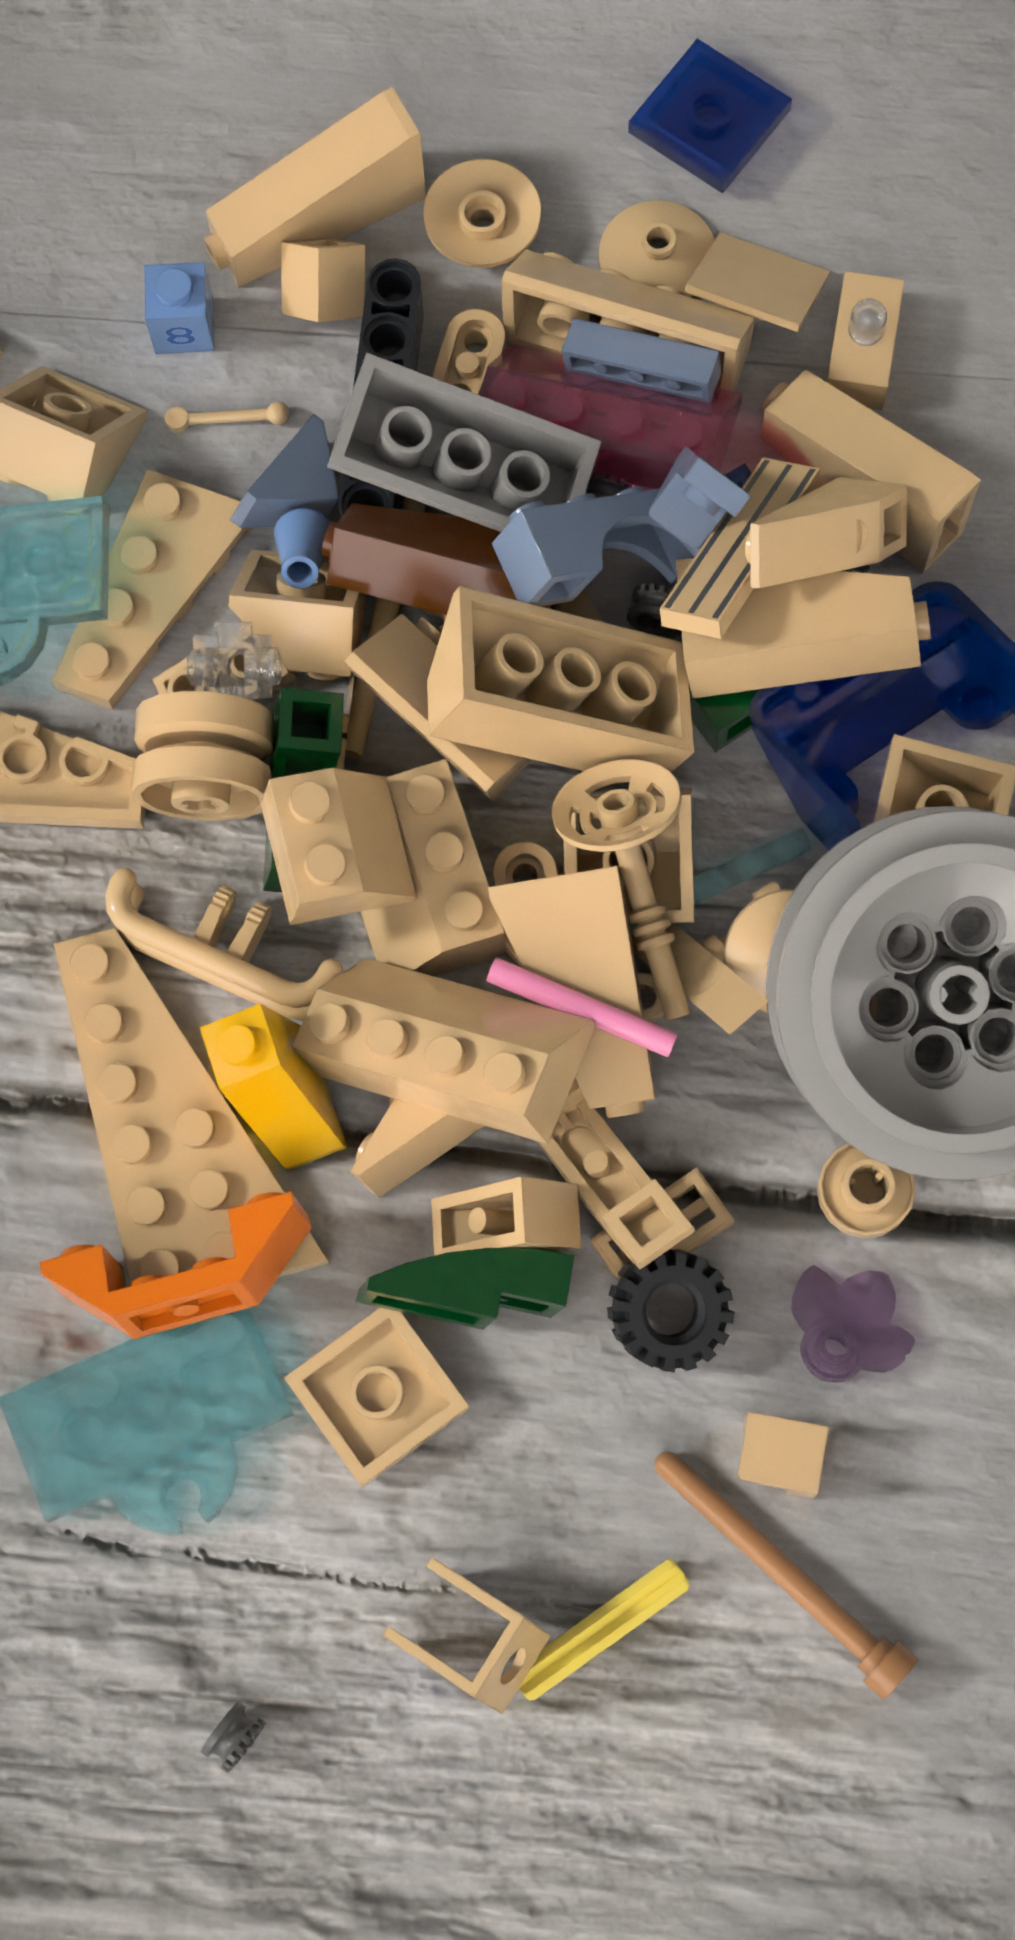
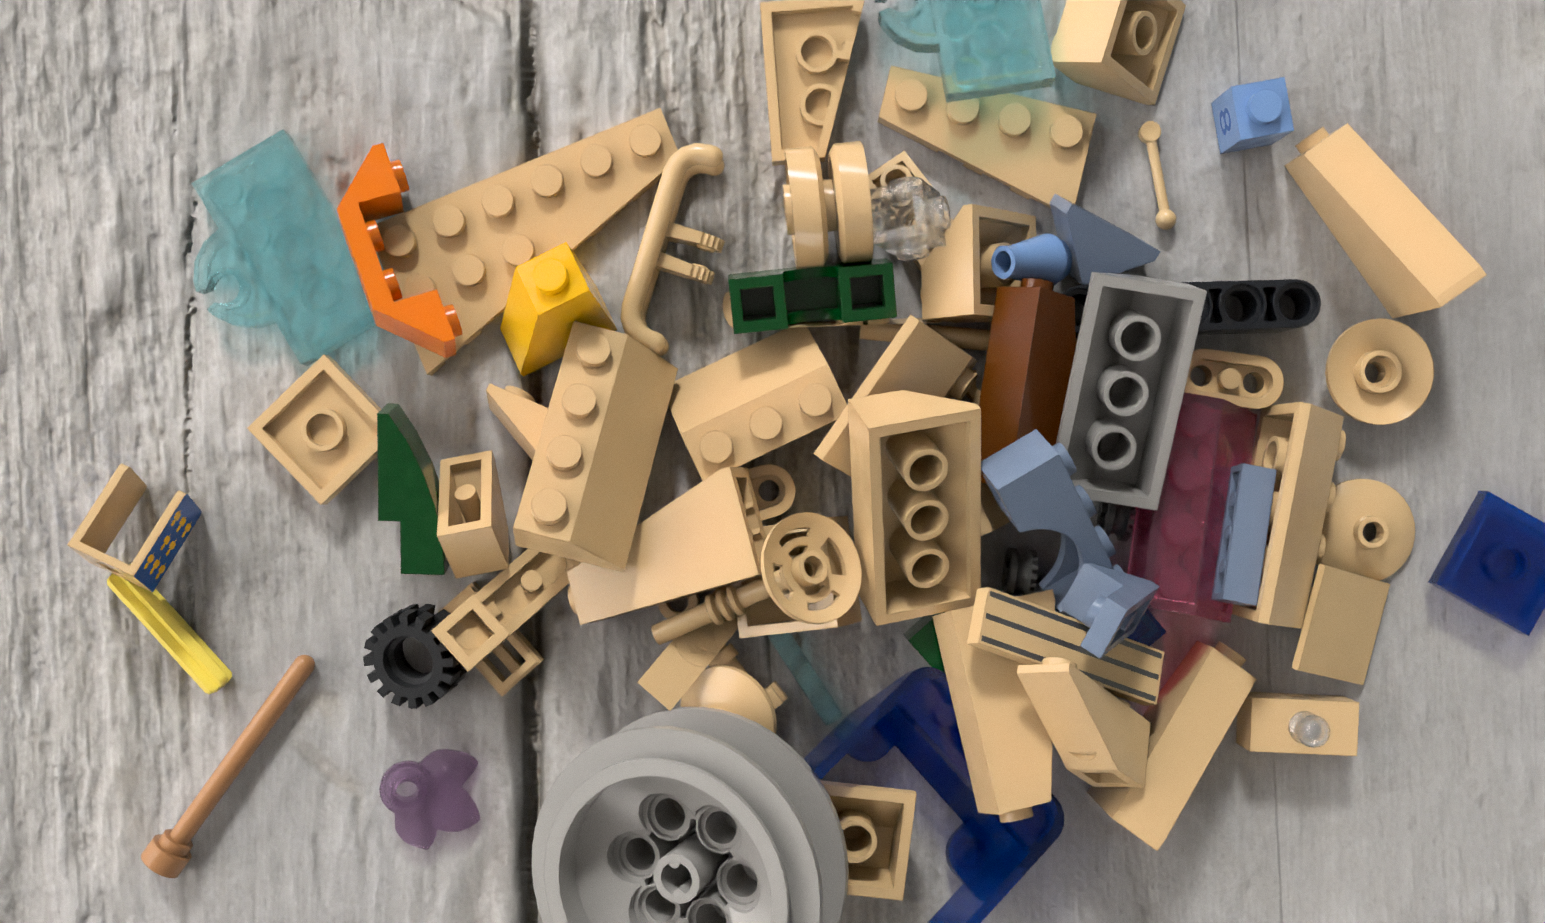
camera: 80 degrees right, 15 degrees up
(231, 1735) = (48, 356): dark grey bush -> none
(322, 279) = (1297, 239): tan panel -> none
(335, 843) = (752, 334): tan slope -> none
(571, 1001) = (639, 558): bright pink bar -> none
(782, 1454) = (315, 758): tan panel -> none
(863, 1194) = (523, 796): tan plate -> none

